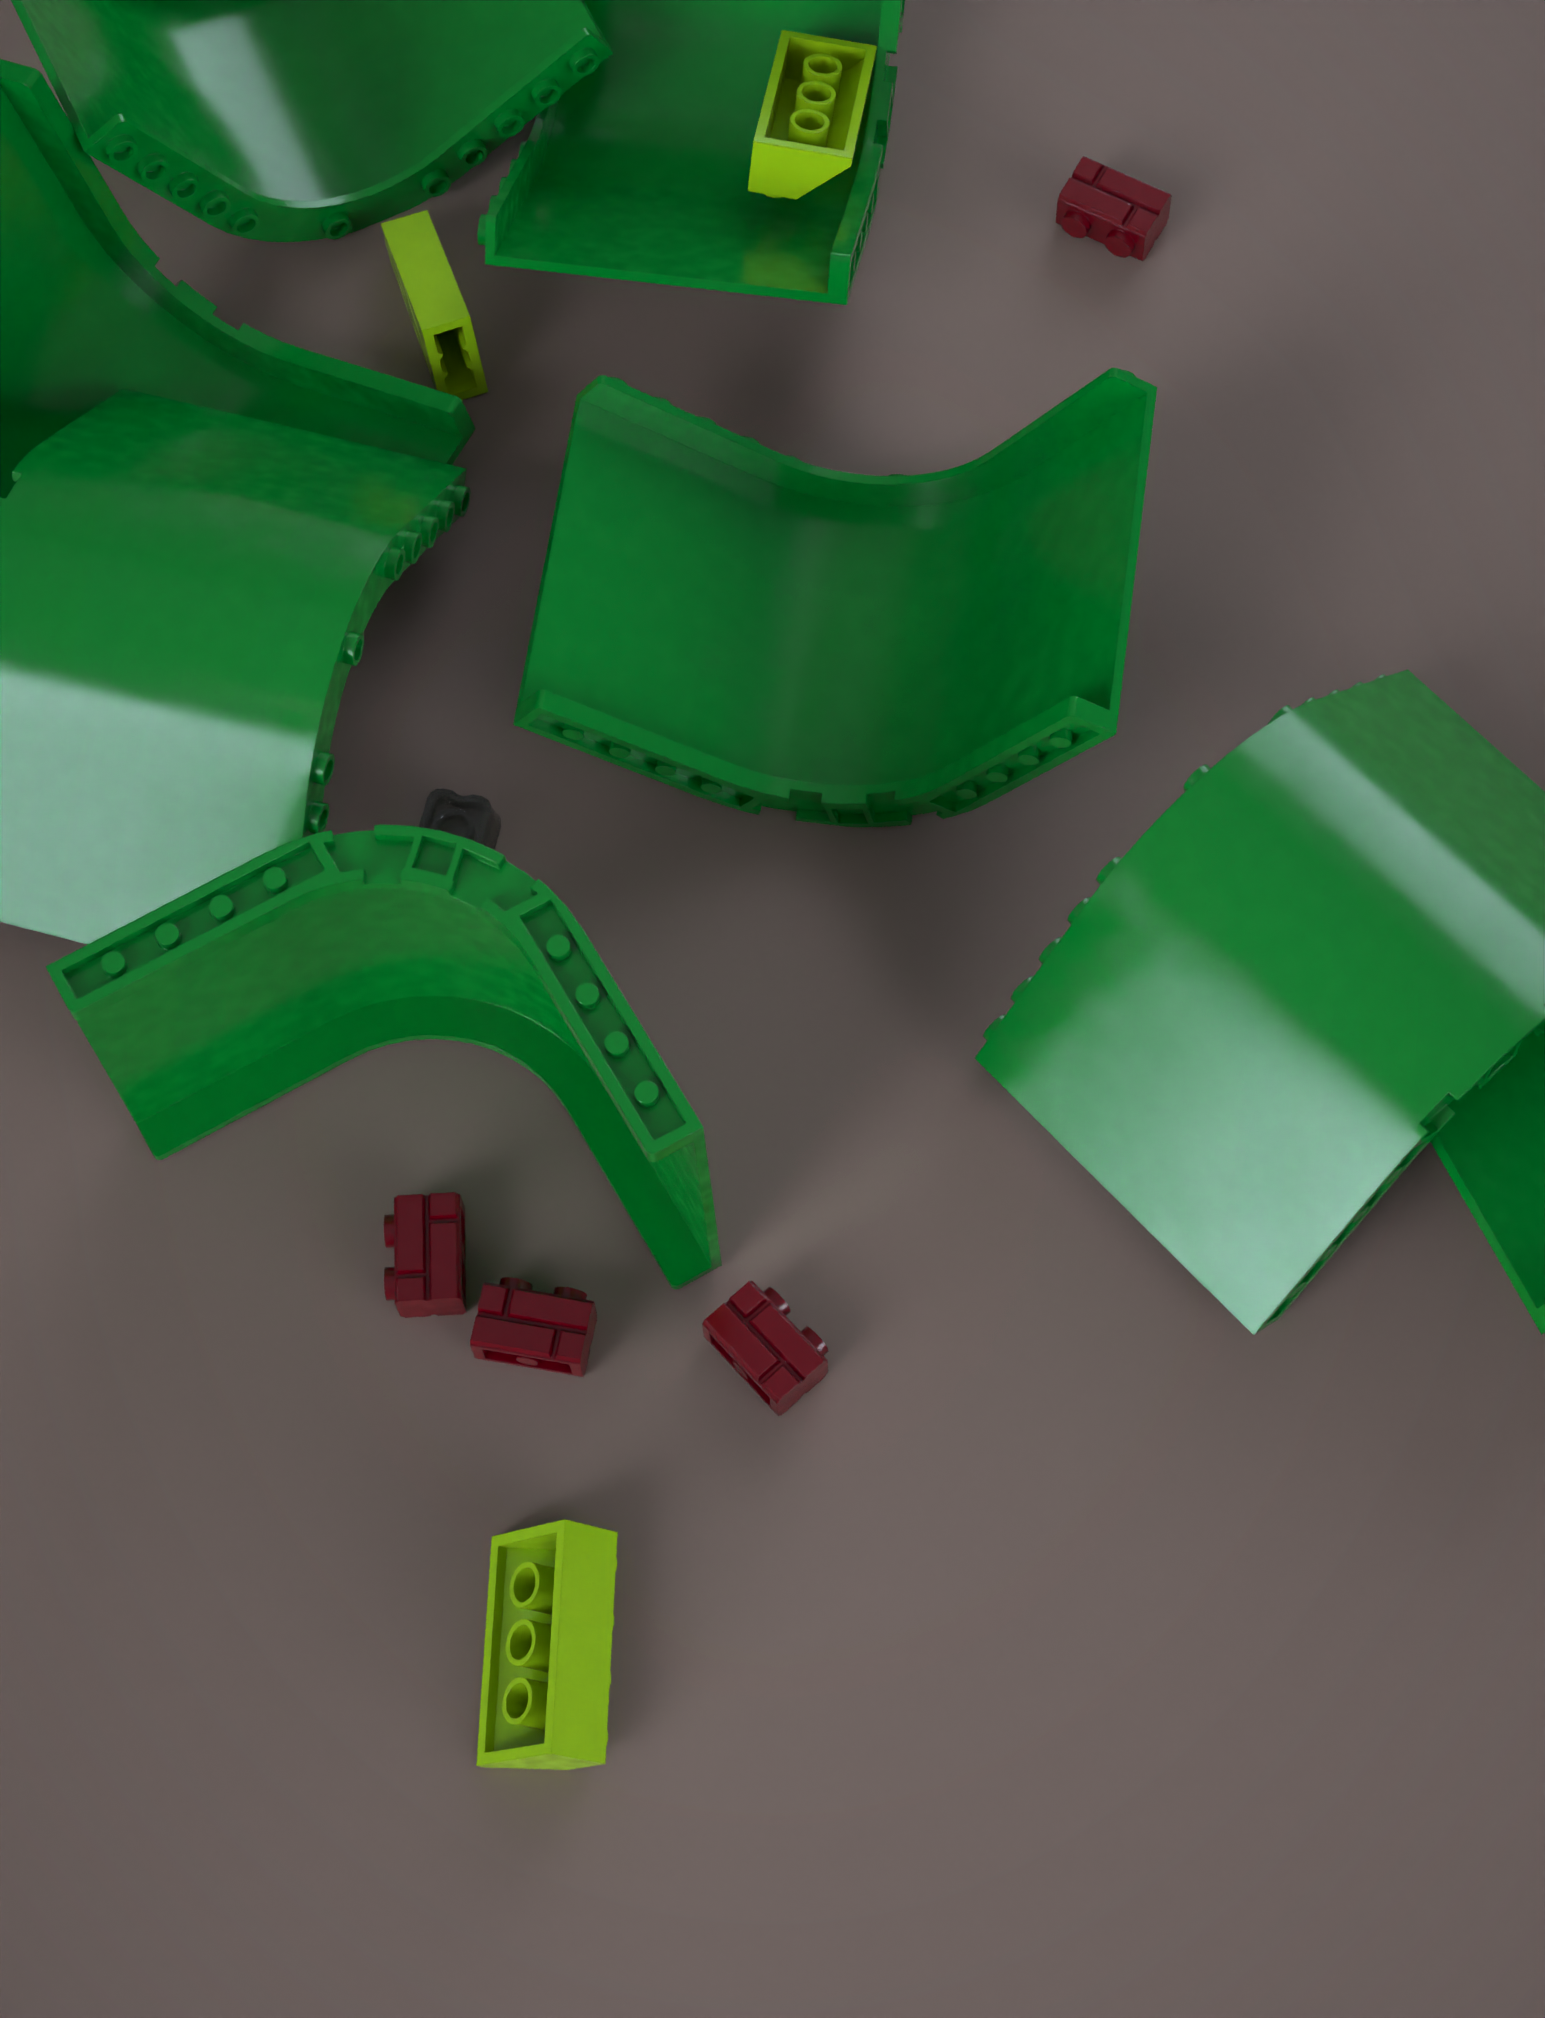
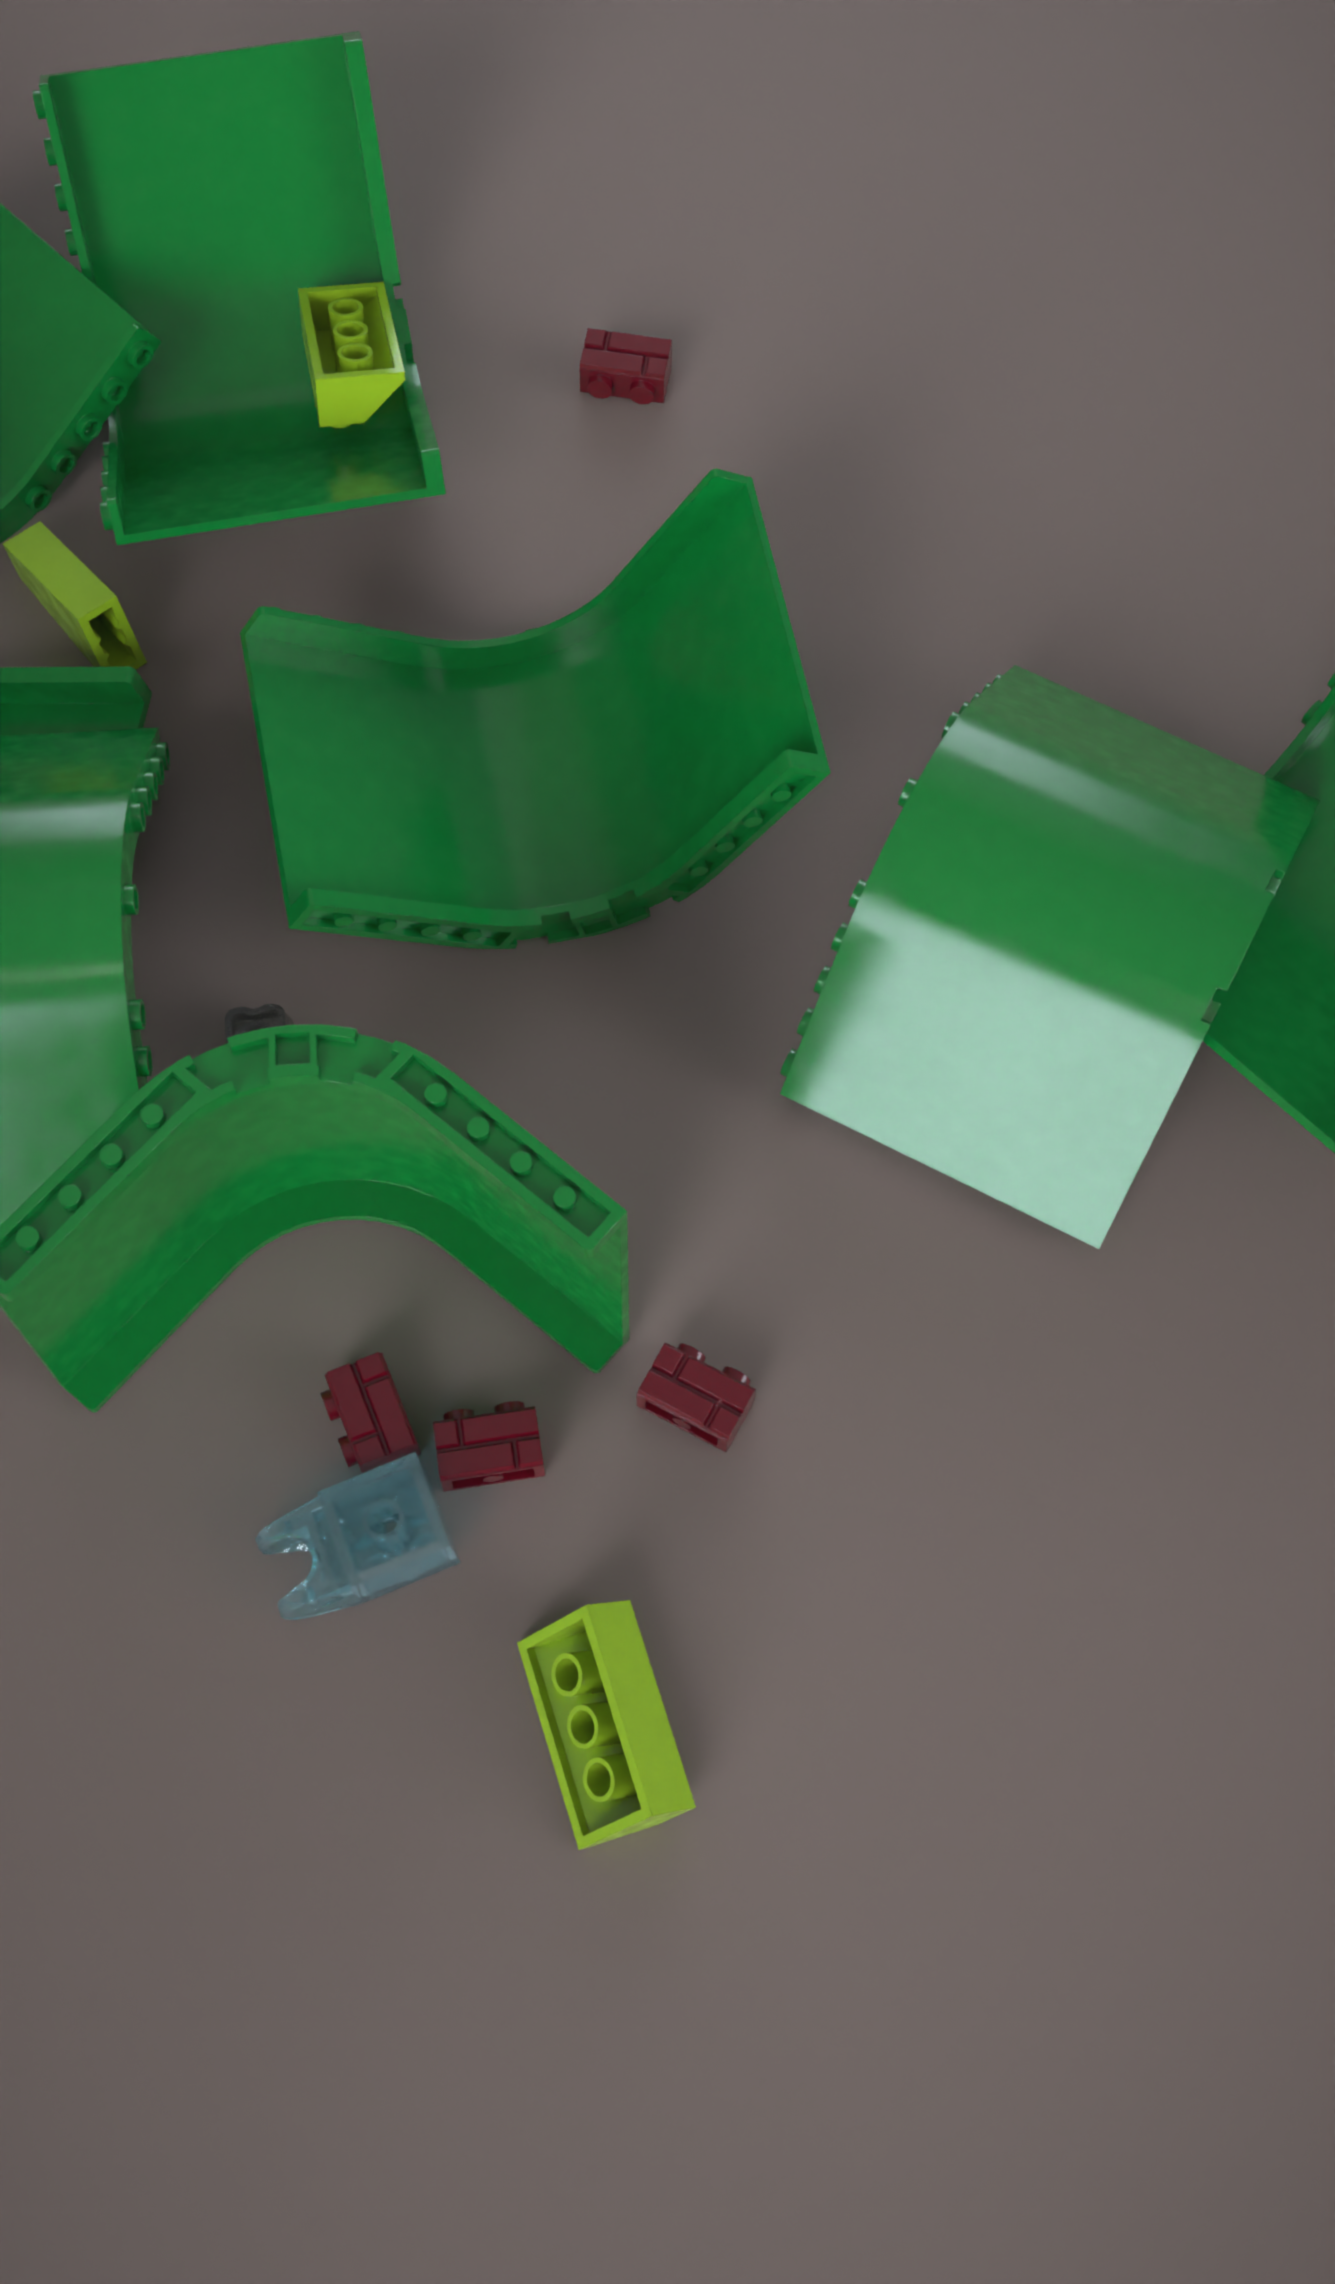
camera: 25 degrees left, 0 degrees up
(361, 1380) = (350, 1540): none -> clear light blue brick

